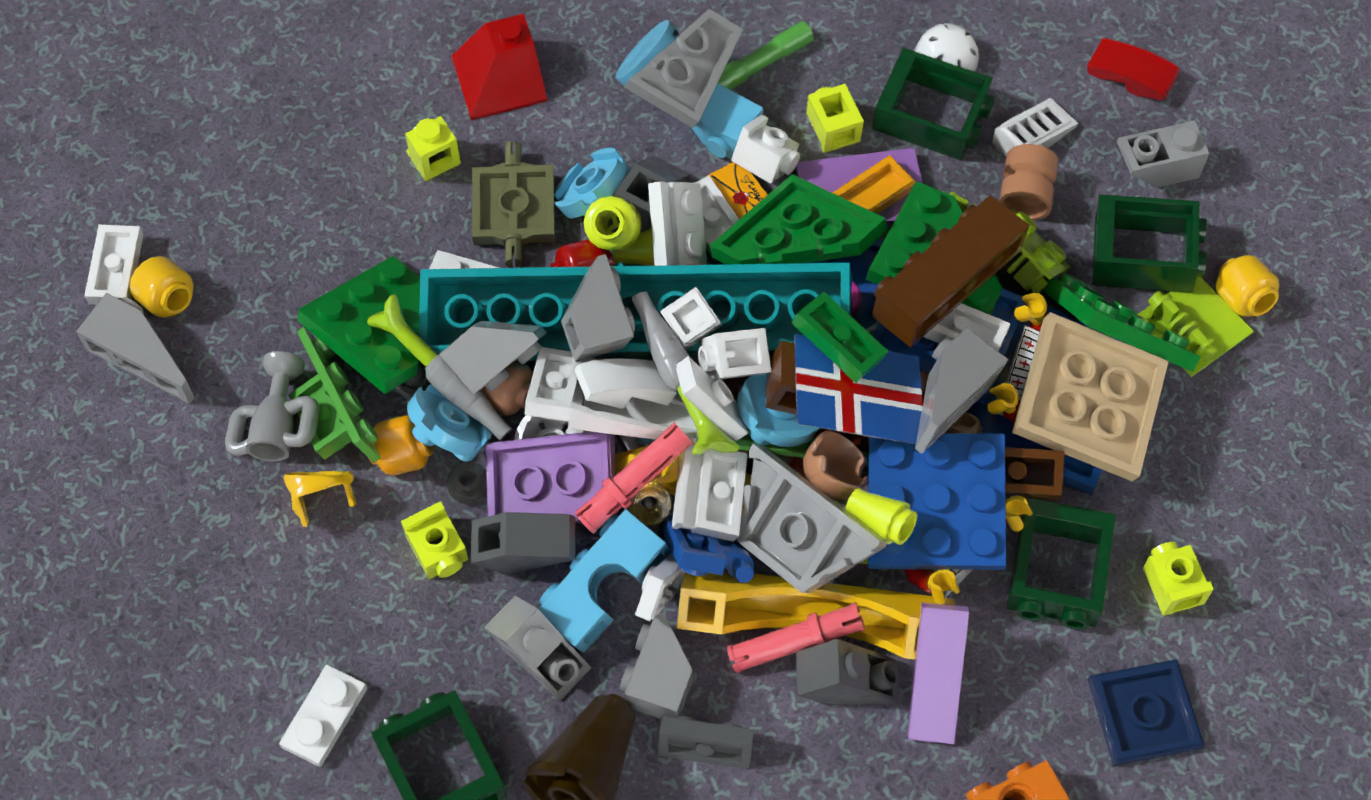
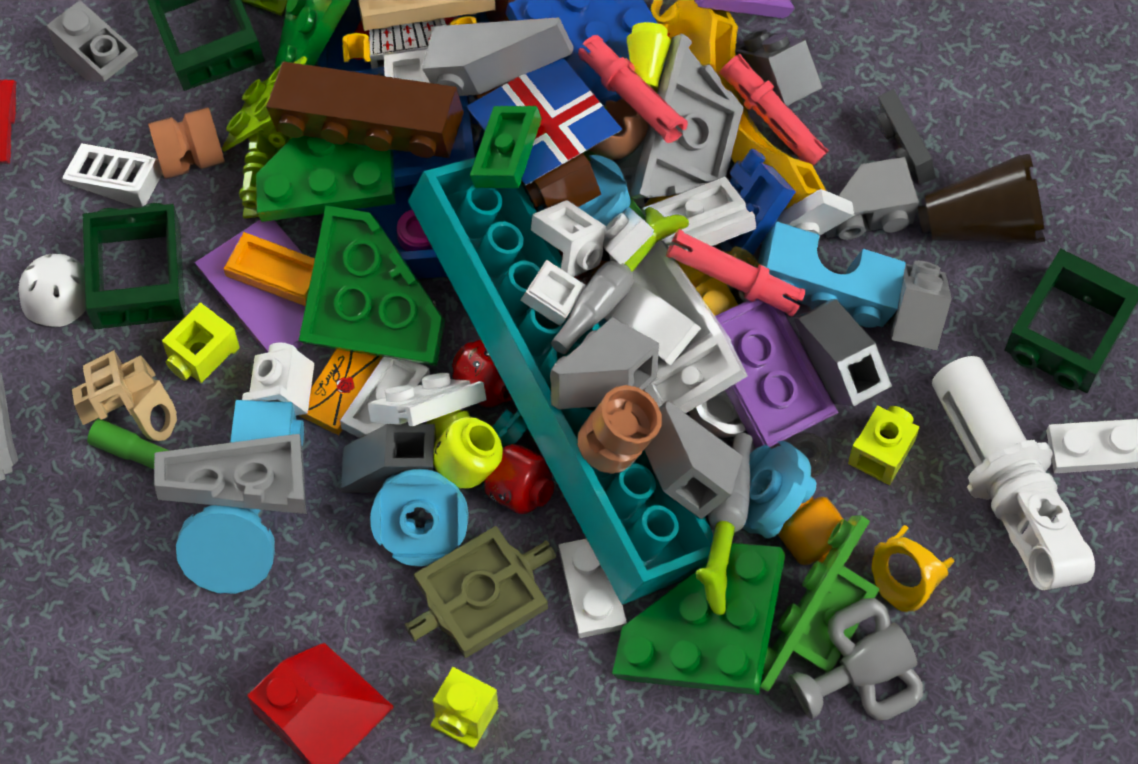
camera: 120 degrees left, 0 degrees up
(340, 609) = (1013, 476): none -> white piece
(536, 293) = (619, 429): none -> nougat wheel
(812, 49) = (122, 385): none -> tan piece
(866, 473) = (619, 76): none -> coral pin

